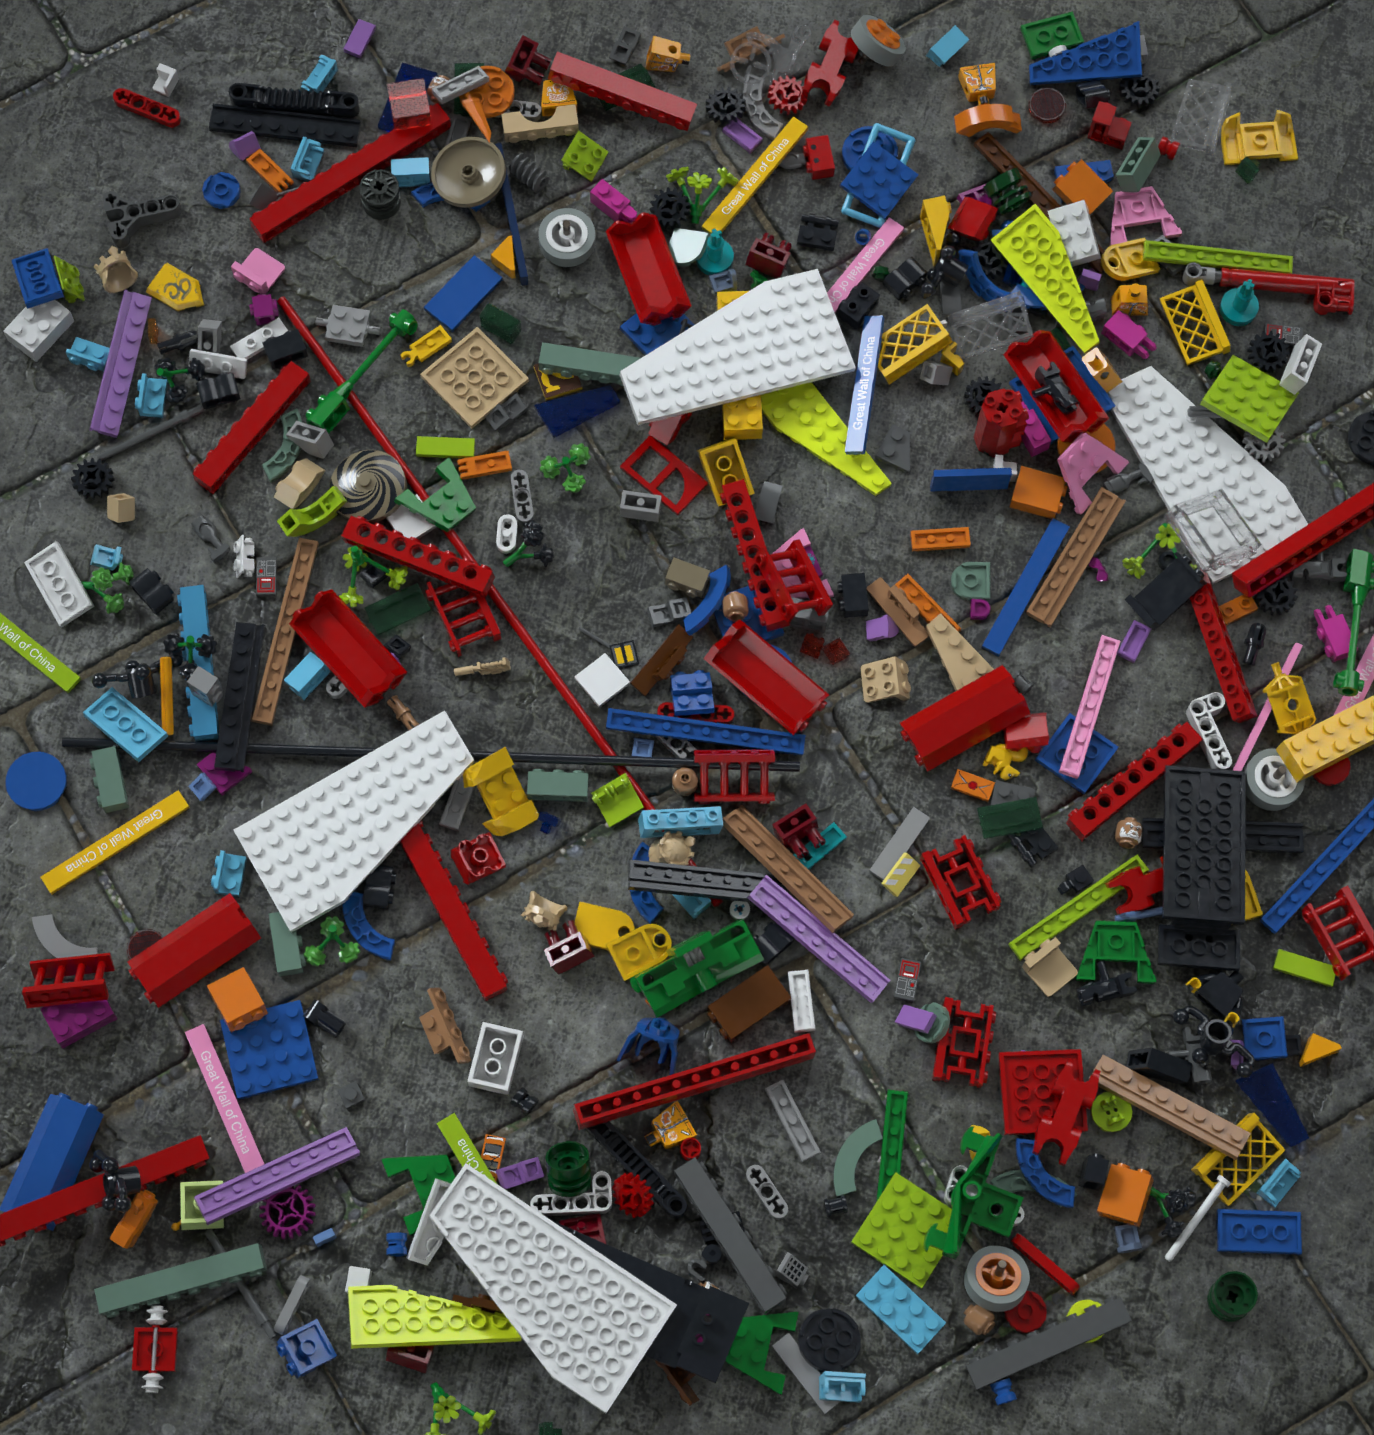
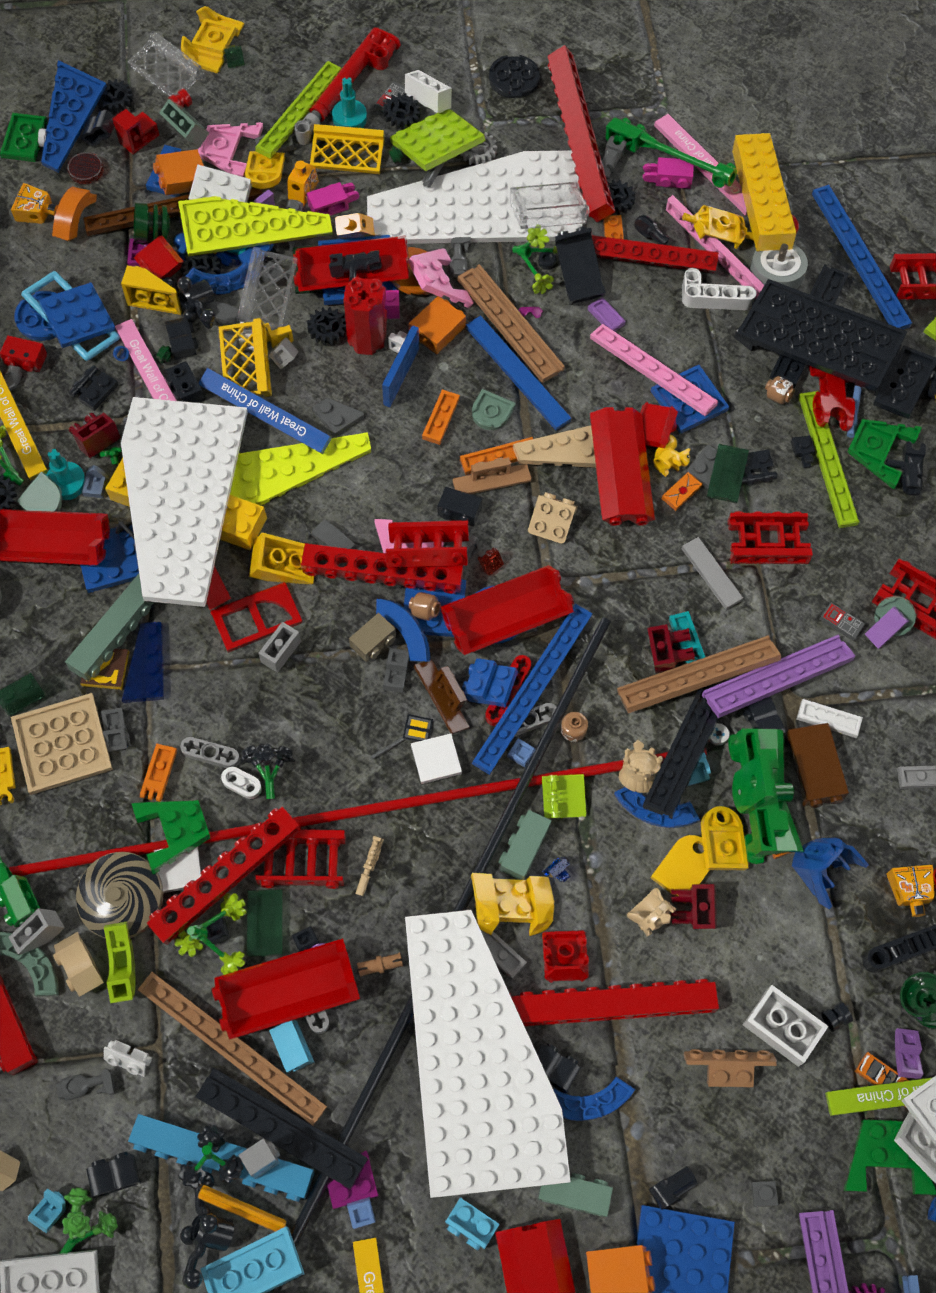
camera: 65 degrees left, 5 degrees down
(266, 576) = (160, 1043): dark grey tile -> none
(332, 929) = (610, 1130): bright green plant -> none
(445, 447) = (118, 803): lime tile -> none
(579, 455) = (197, 680): bright green plant -> none
(683, 819) = (615, 746): medium azure brick -> none
(694, 1081) = (882, 848): red brick -> none
(743, 757) = (572, 678): red fence -> none
(836, 651) = (504, 545): clear red tile -> none
(881, 628) = (502, 499): medium lavender tile -> none
(900, 874) = (742, 583): light yellow tile -> none
(979, 609) = (520, 416): magenta tile -> none
(1049, 967) = (876, 502): tan bracket -> none
(1083, 827) = (742, 373): red brick -> none

